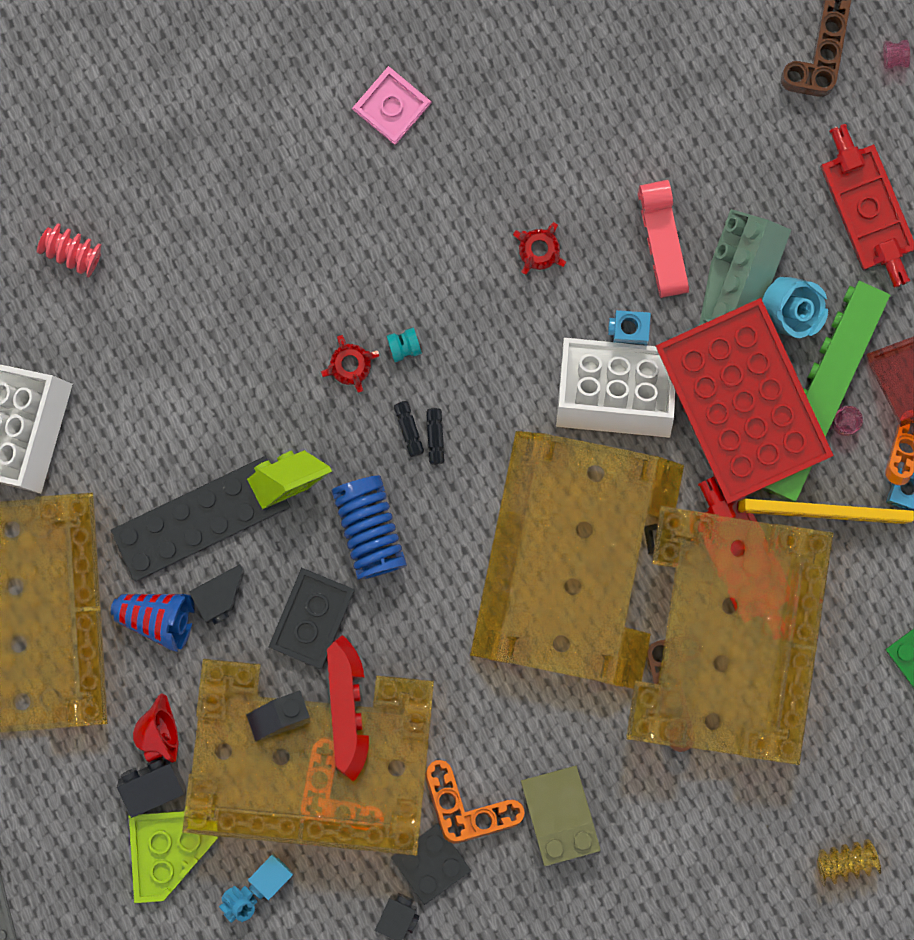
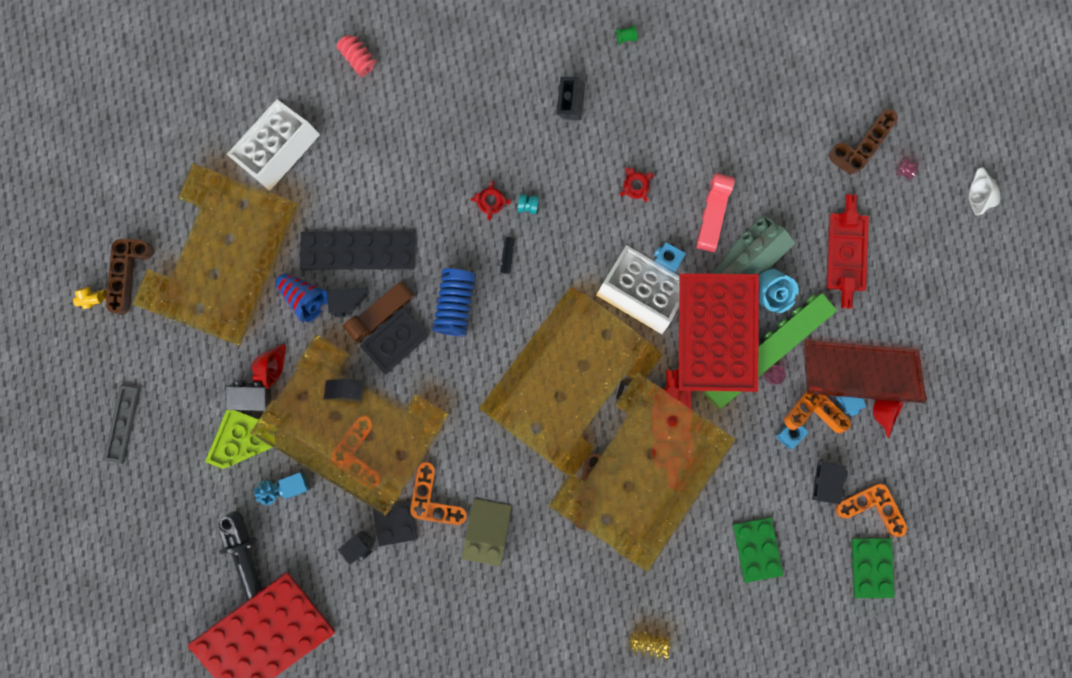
camera: 20 degrees right, 0 degrees up
(273, 587) = (379, 312): none -> reddish brown beam
(286, 477) = (418, 249): lime slope -> none
(343, 670) = (377, 427): red brick -> none
(391, 105) = (589, 59): bright pink tile -> none
(393, 172) = (570, 98): none -> black brick
(427, 46) = (626, 34): none -> green bush
(435, 436) = (521, 267): black axle -> none
(825, 511) = (736, 423): yellow tile -> none

